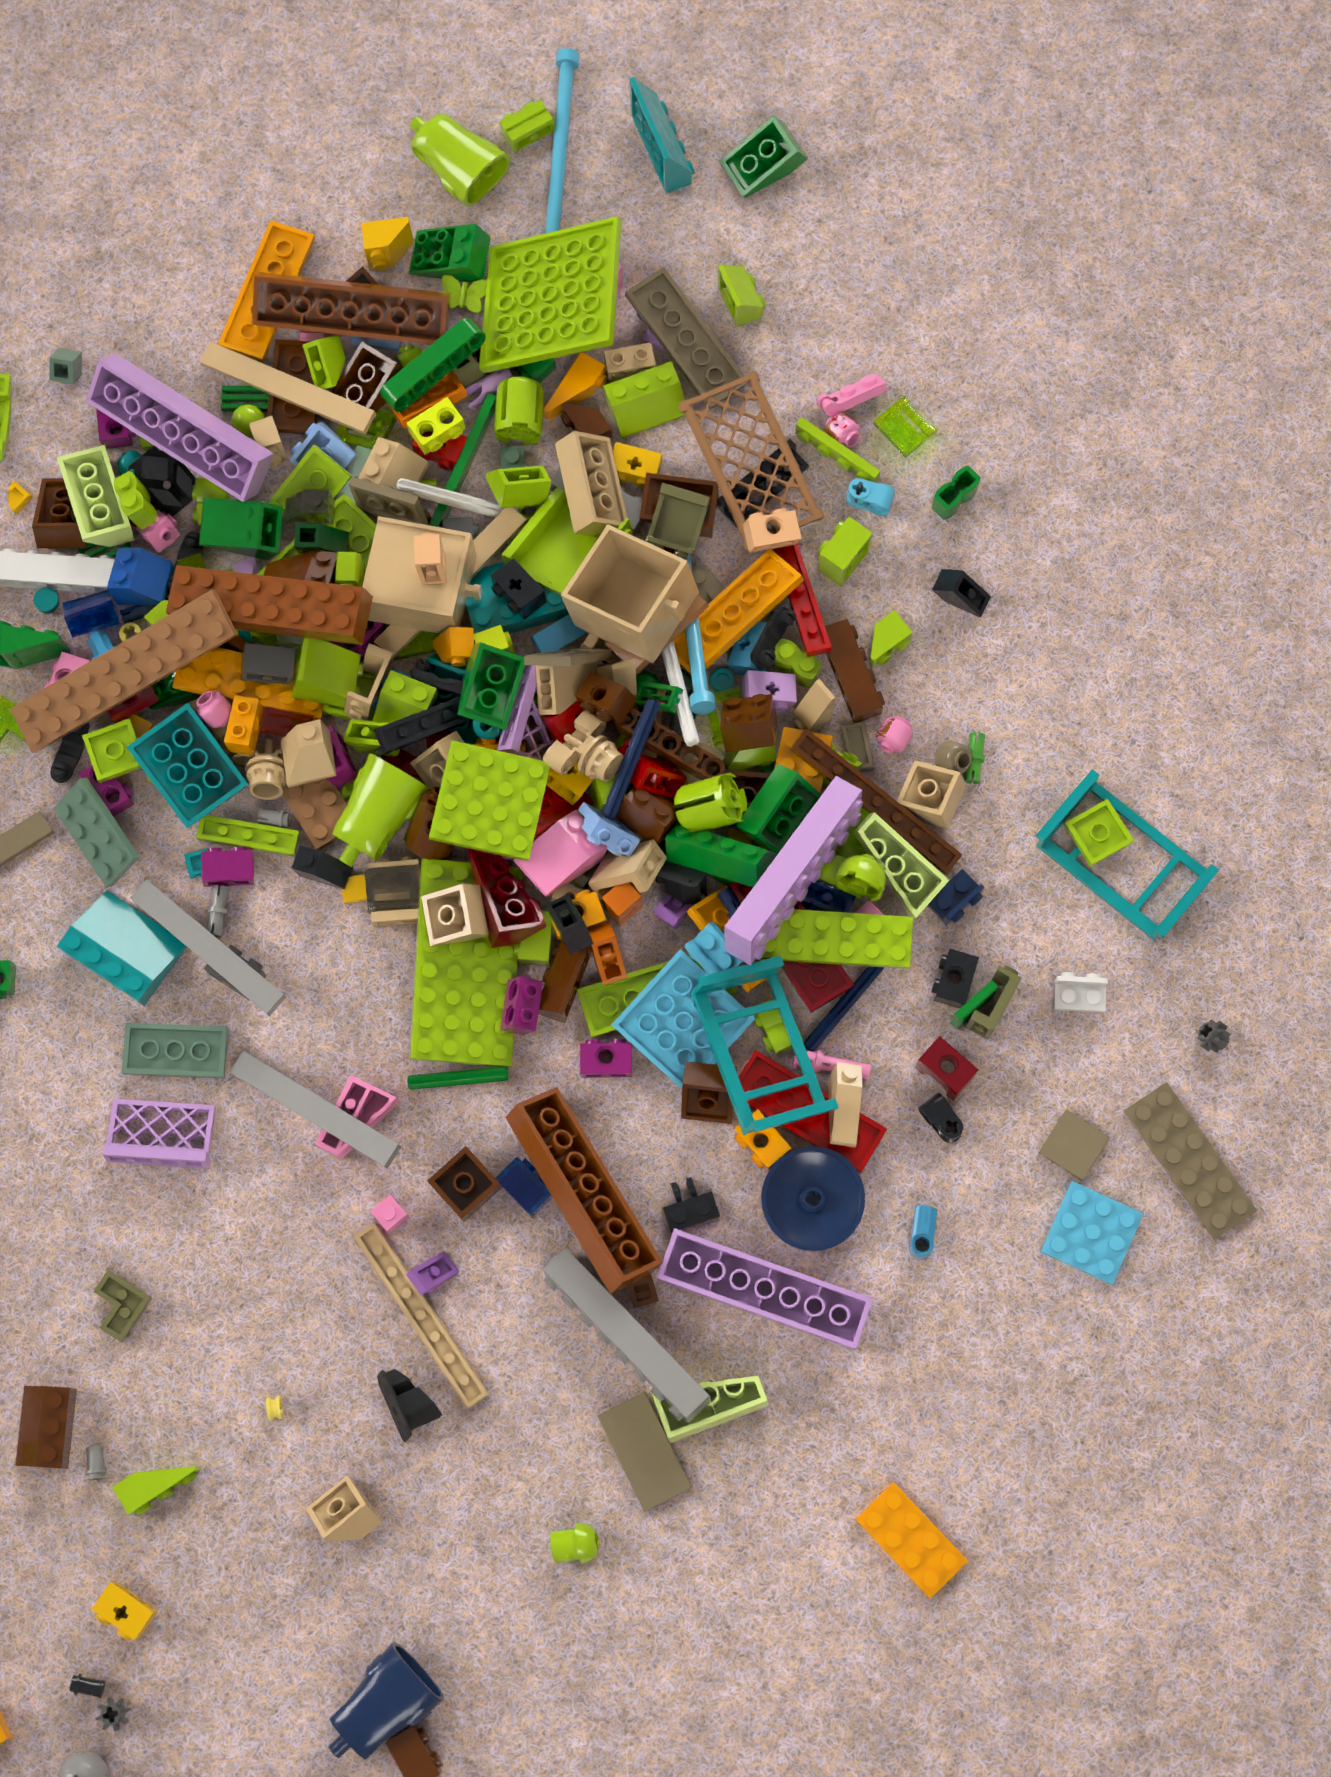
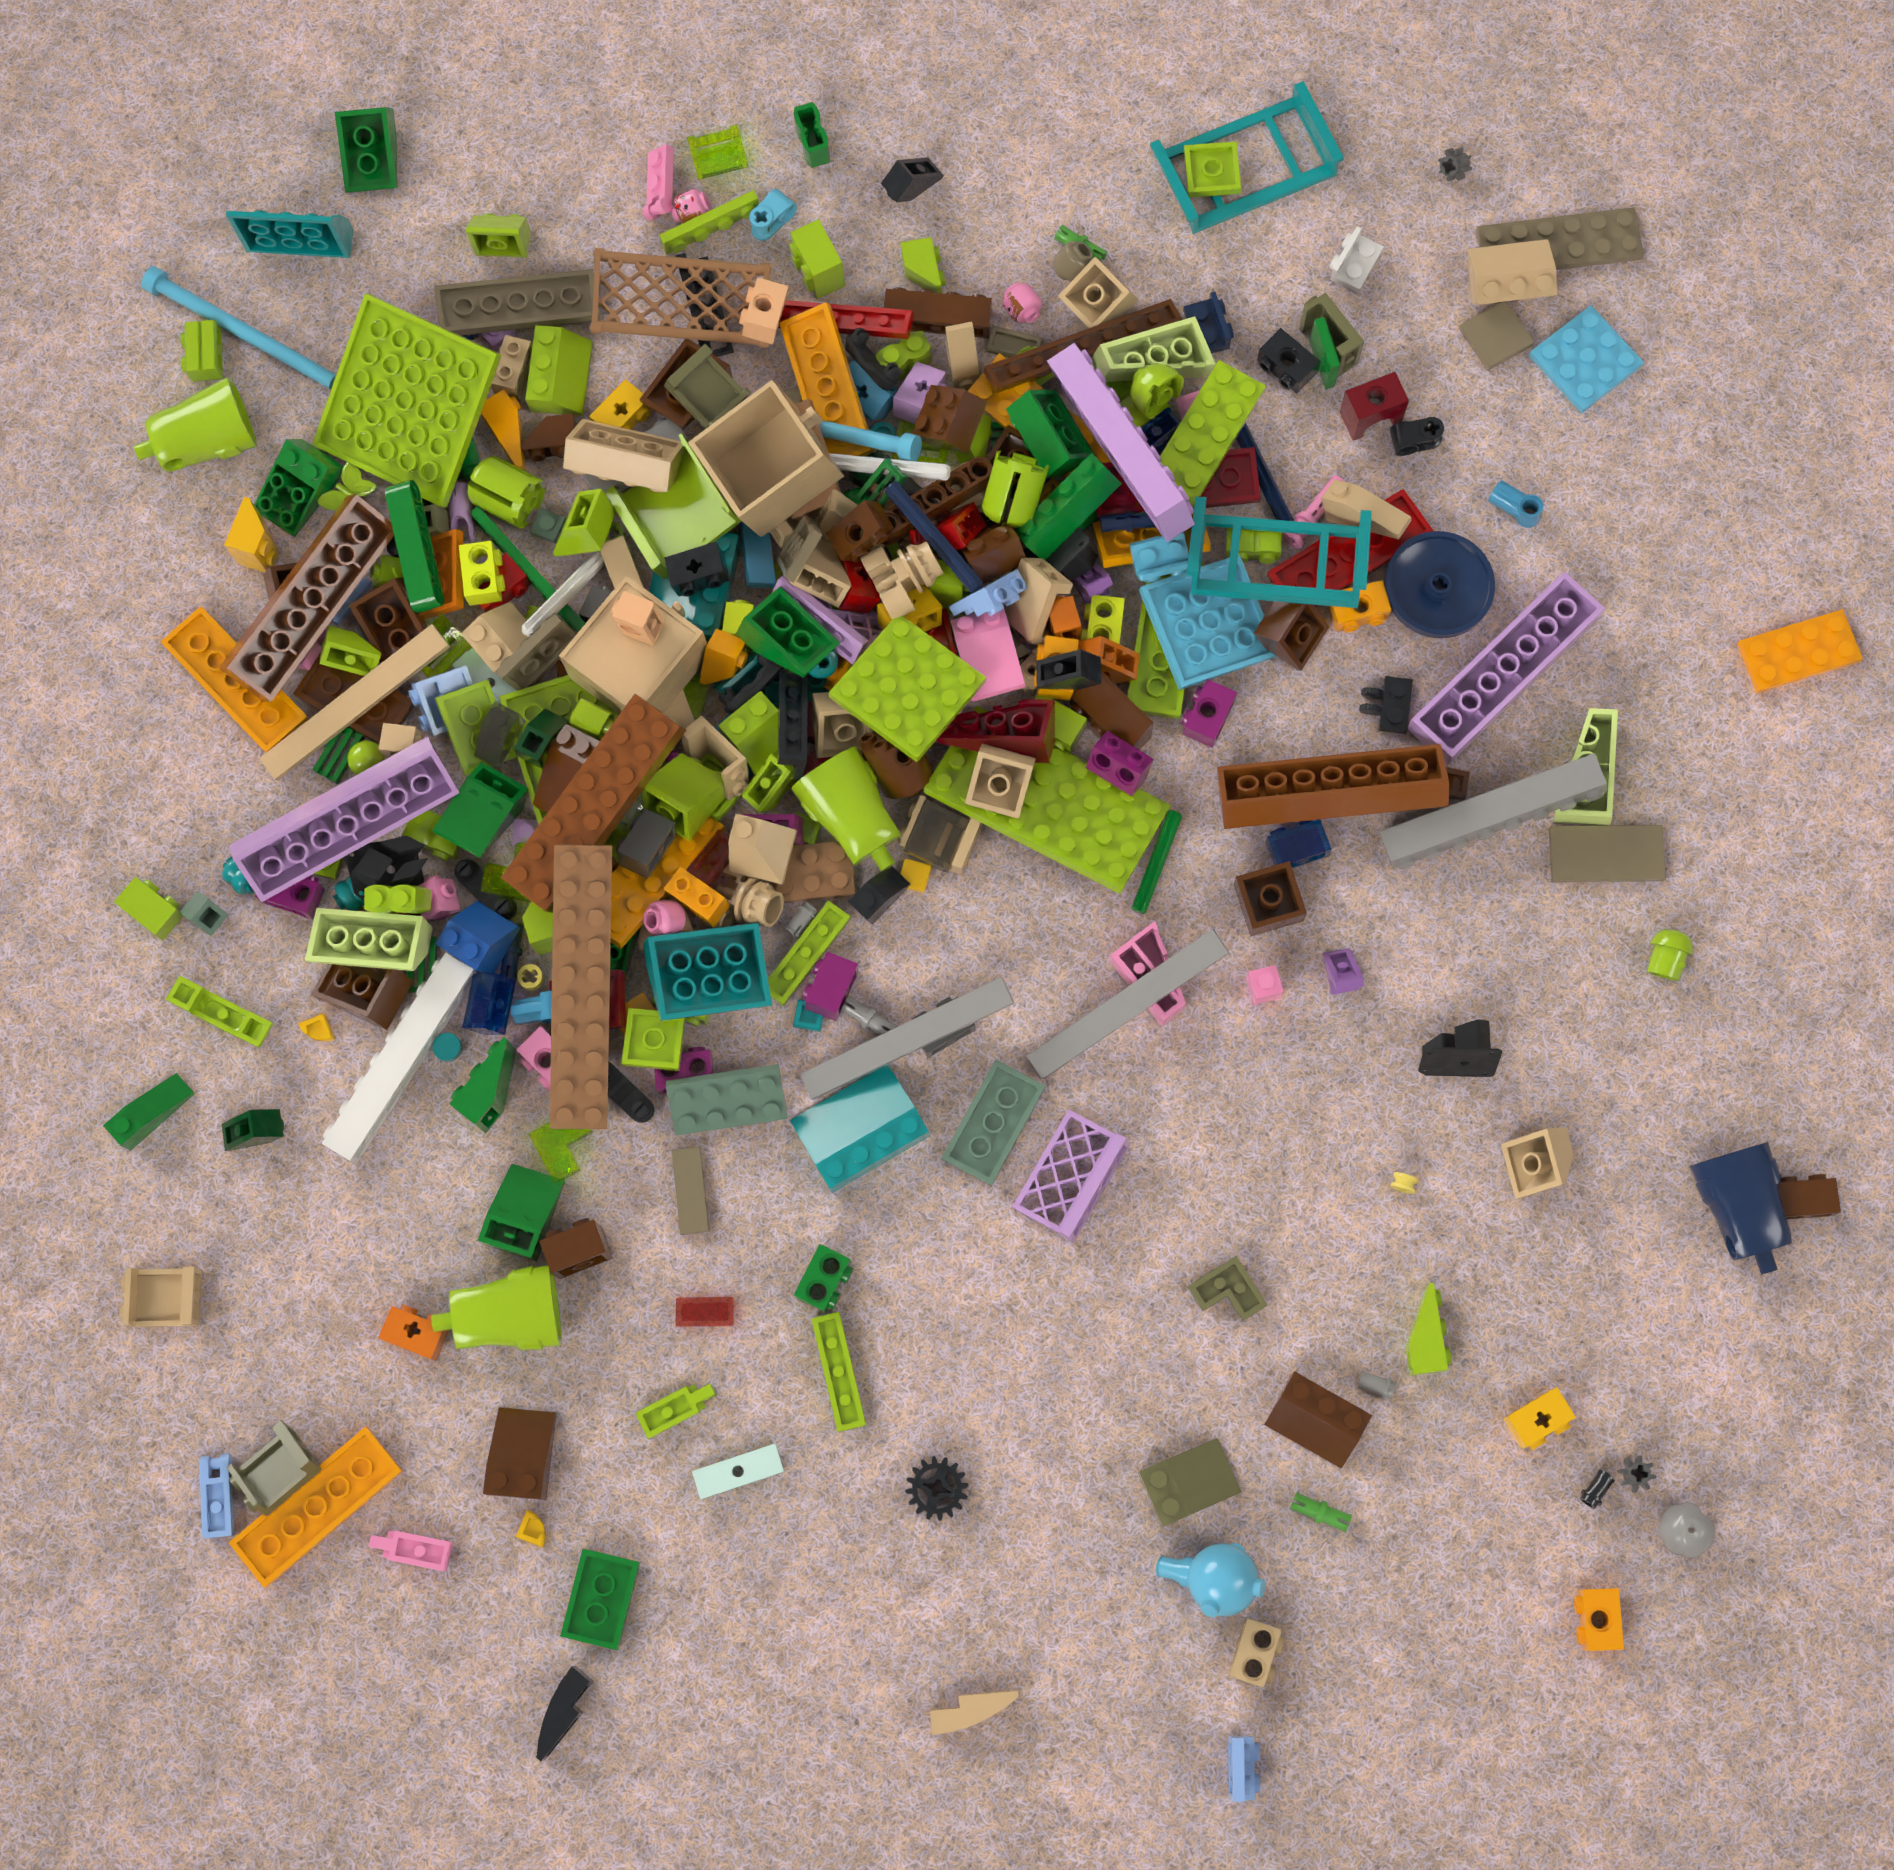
camera: 60 degrees left, 0 degrees up
(53, 324) = (149, 908): none -> lime brick
(421, 1316) = (1376, 1003): tan tile -> none
(642, 945) = (1109, 626): none -> neon yellow brick
(1133, 1130) = (1511, 272): none -> tan slope

